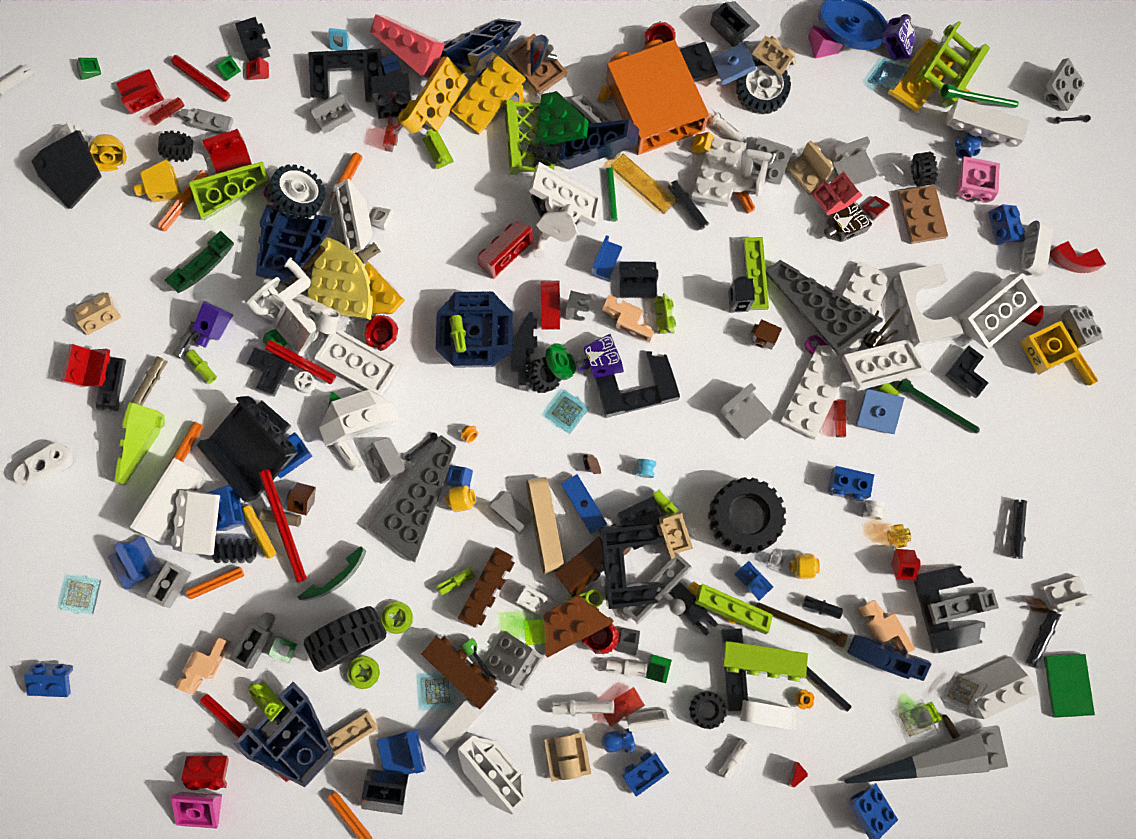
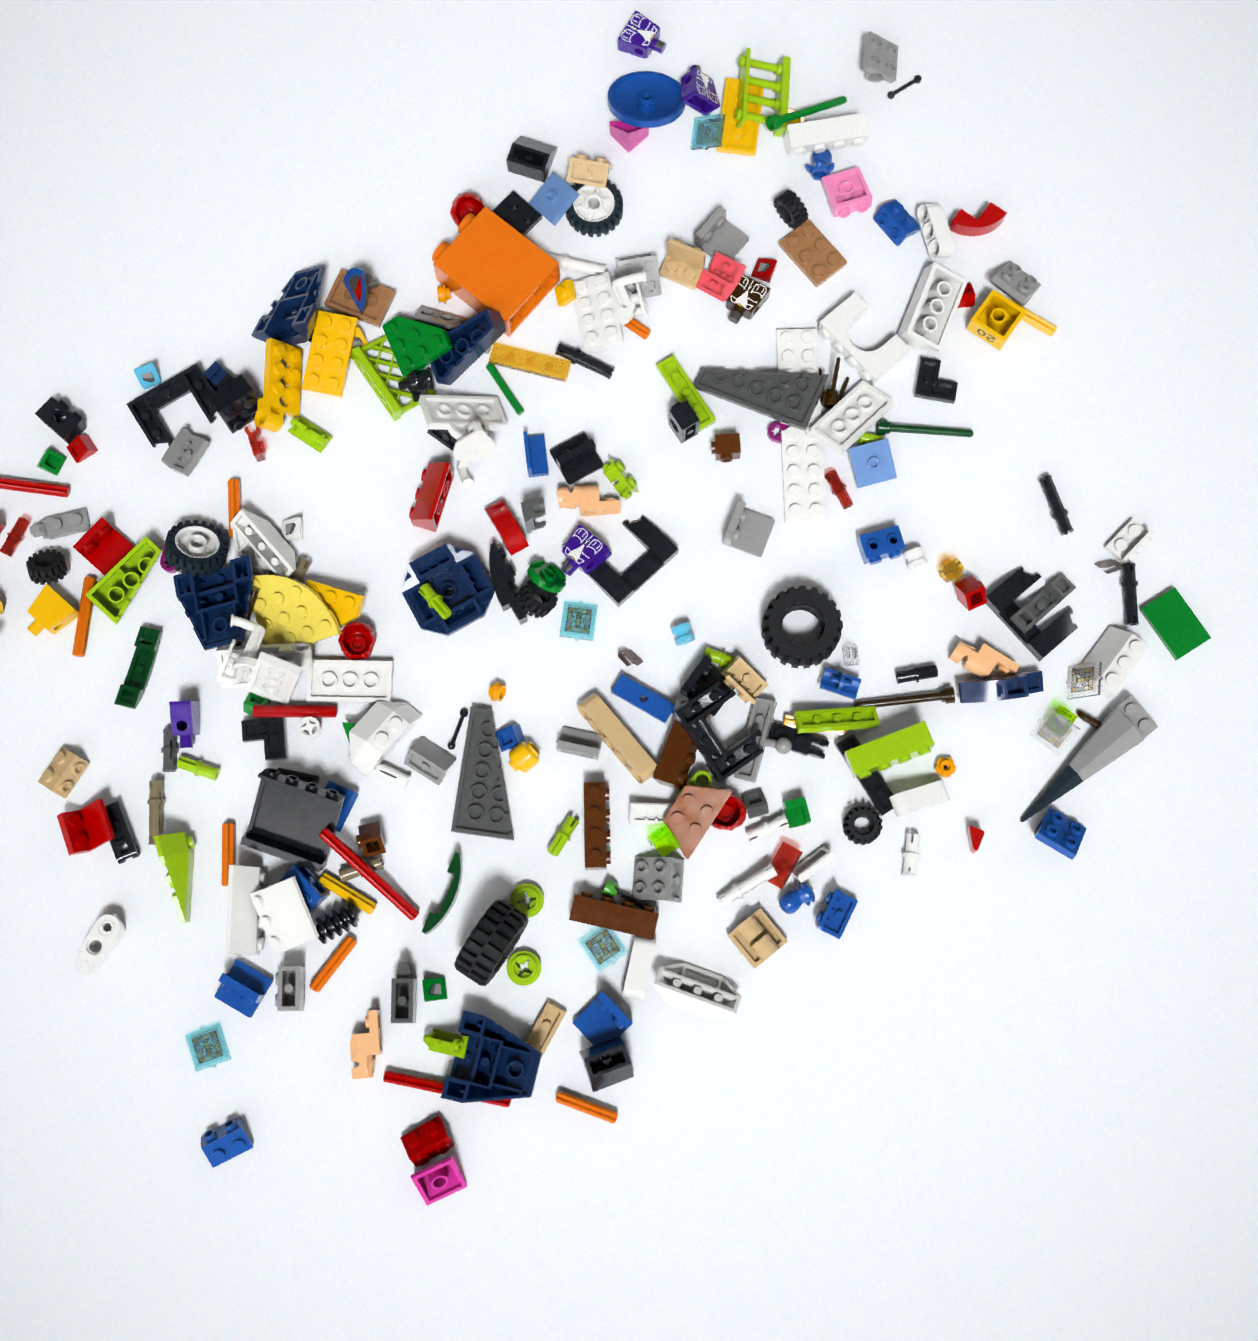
camera: 25 degrees left, 0 degrees up
(412, 46) = (224, 344): coral wedge -> none
(805, 566) = (880, 645): yellow head -> none
(828, 690) = (961, 746): black bar -> none

